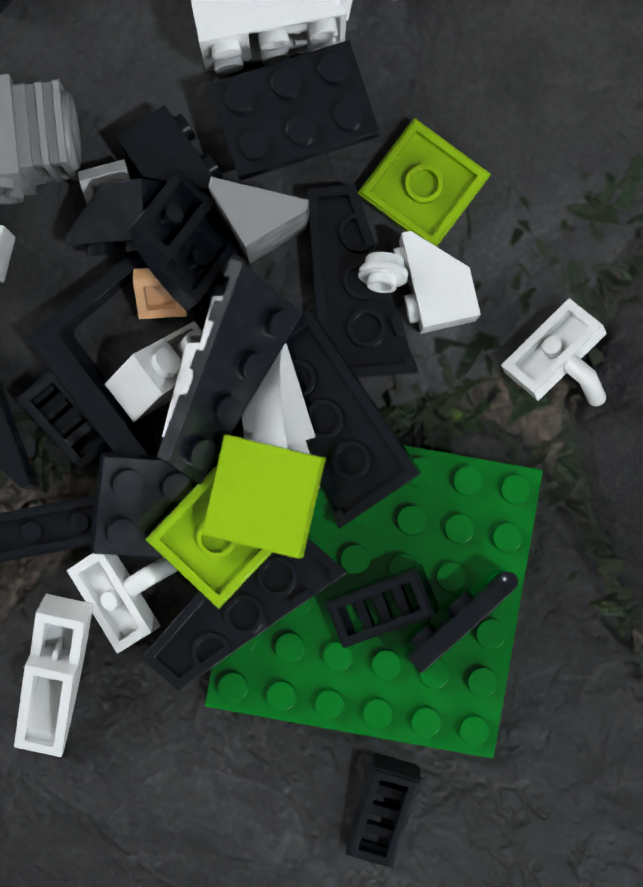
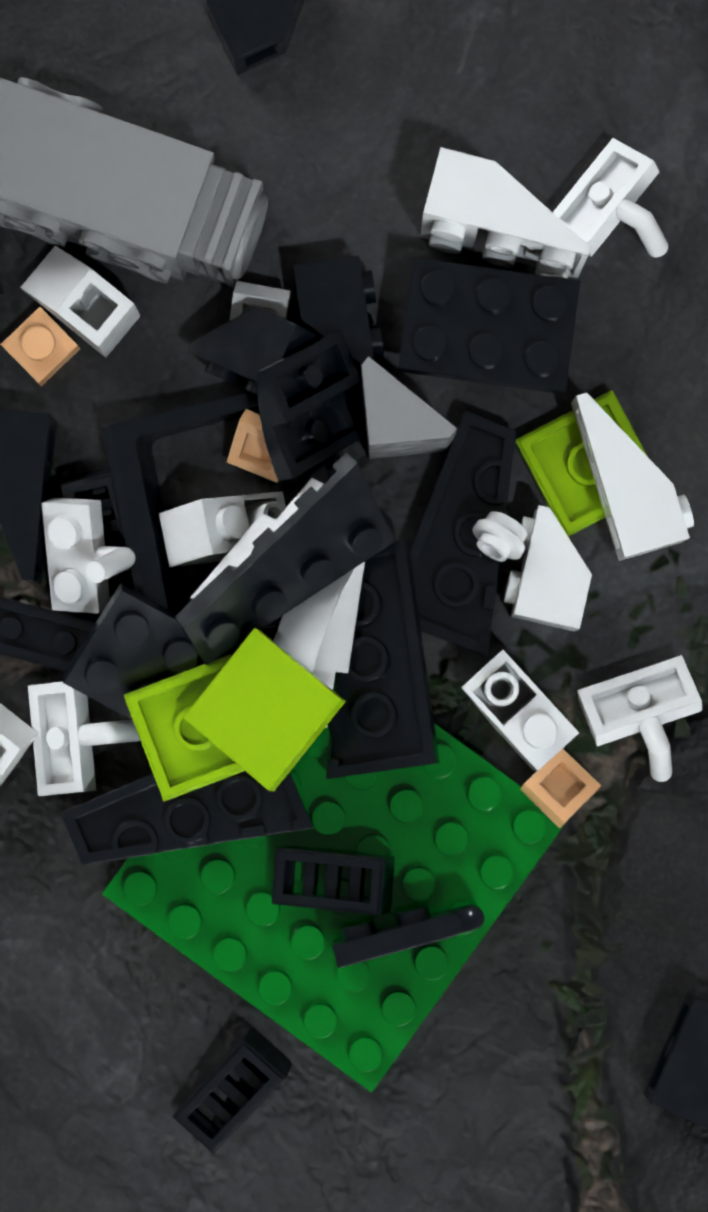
camera: 30 degrees right, 0 degrees up
(57, 448) = (78, 555): none -> white plate
(465, 402) = (519, 711): none -> white slope
(469, 186) = (633, 491): none -> white slope
(524, 447) = (560, 788): none -> light nougat plate

